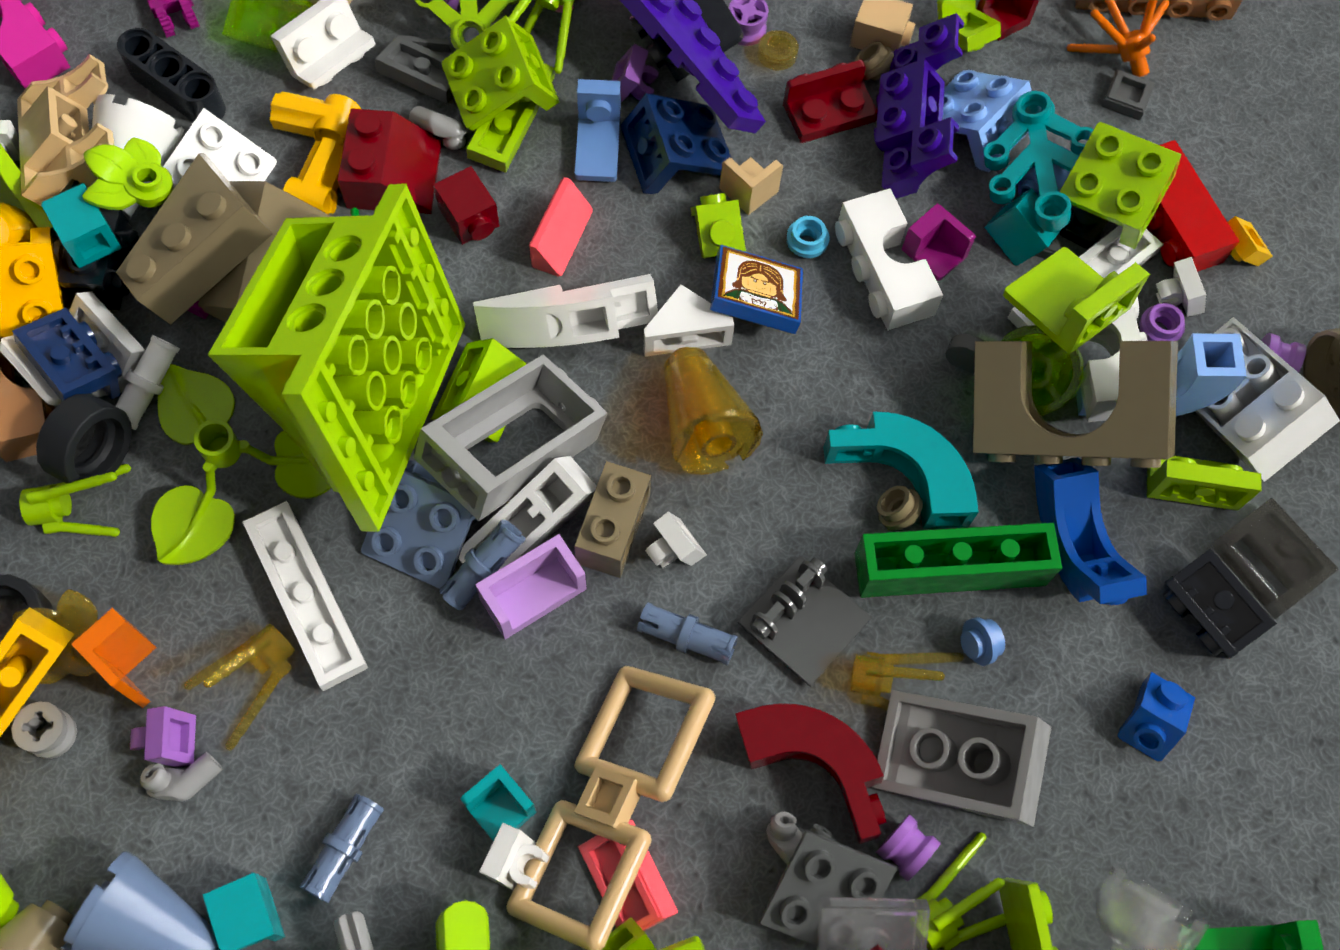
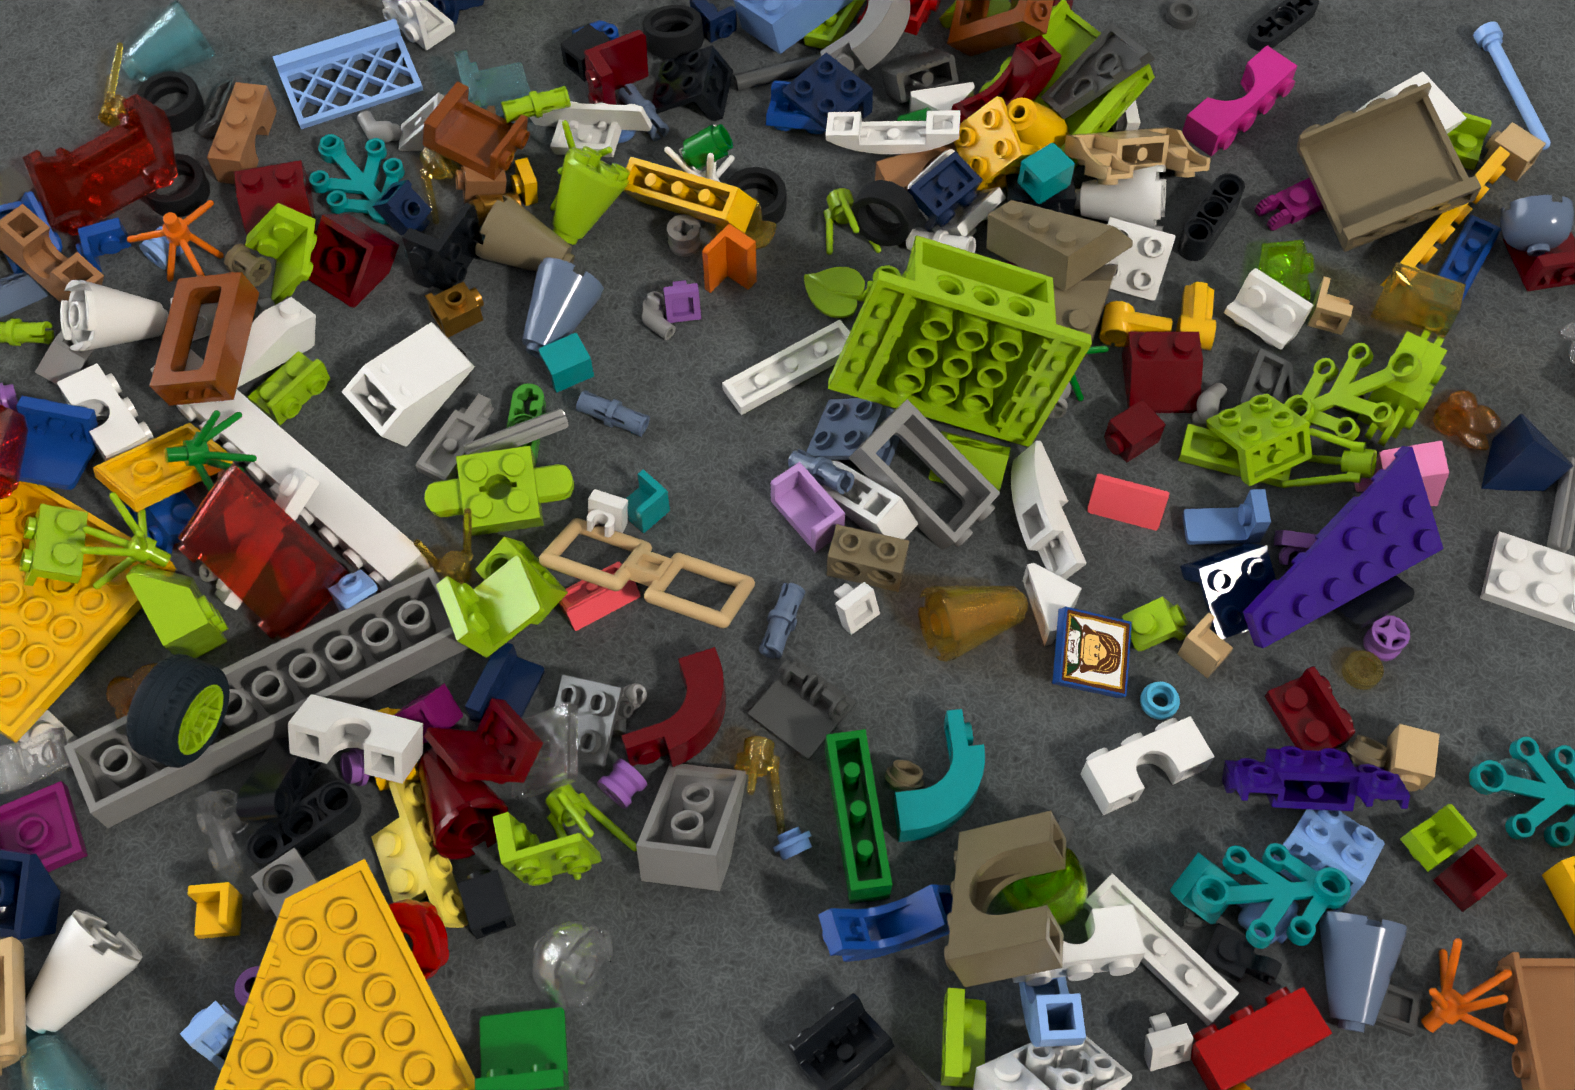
camera: 90 degrees right, 5 degrees down
(123, 175) = (1088, 184): lime plate -> none
(262, 651) = (745, 348): clear yellow plant -> none
(939, 240) = (1173, 809): magenta panel -> none
(1072, 299) = (1104, 889): lime bracket -> none
(1095, 95) = (1358, 965): none -> sand blue cone
(1121, 179) = (1253, 960): lime bracket -> none
(1158, 717) = (739, 990): blue bracket -> none
(1166, 314) = (1134, 1014): medium lavender plate -> none

